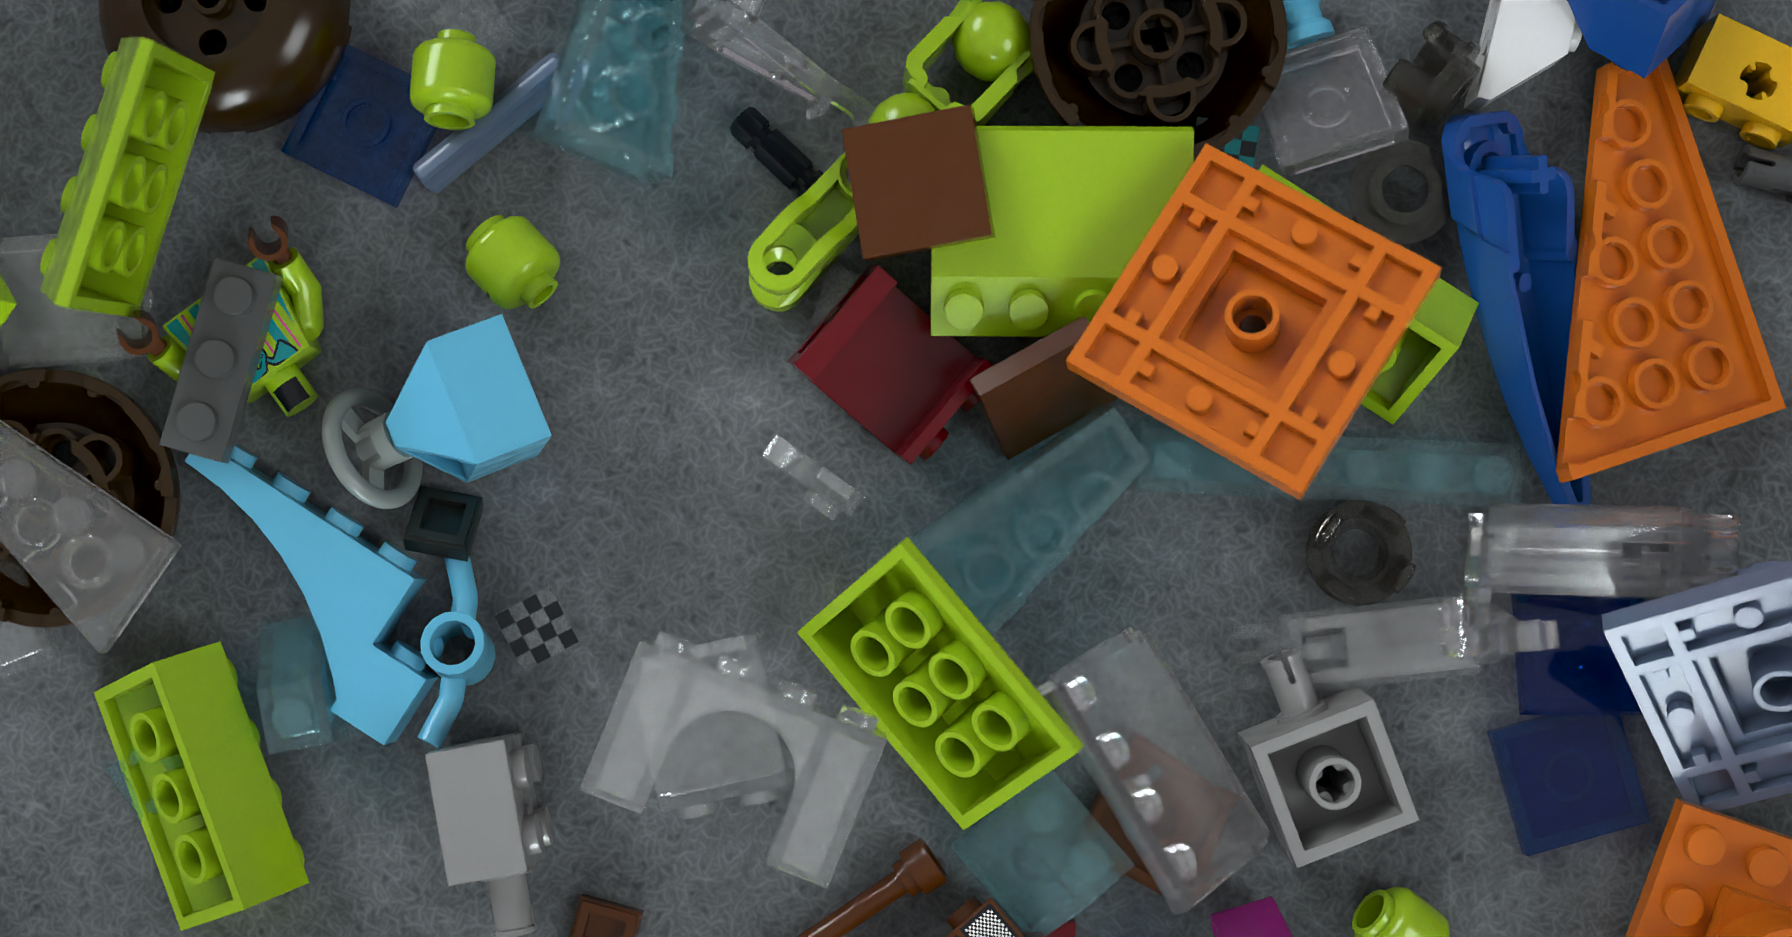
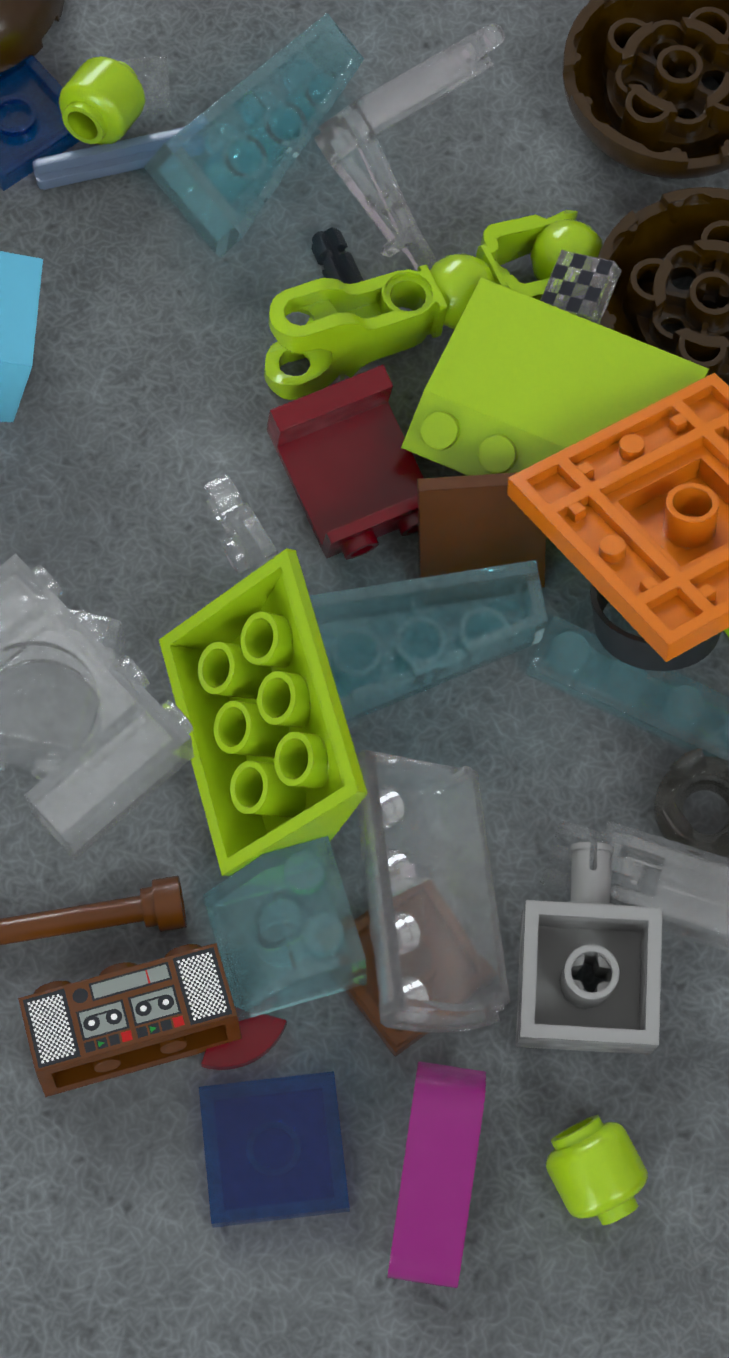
camera: 20 degrees right, 20 degrees down
(512, 262) = (75, 255): lime head -> none
(918, 183) = (448, 308): reddish brown tile -> none
(1029, 91) = (581, 285): none -> clear tile

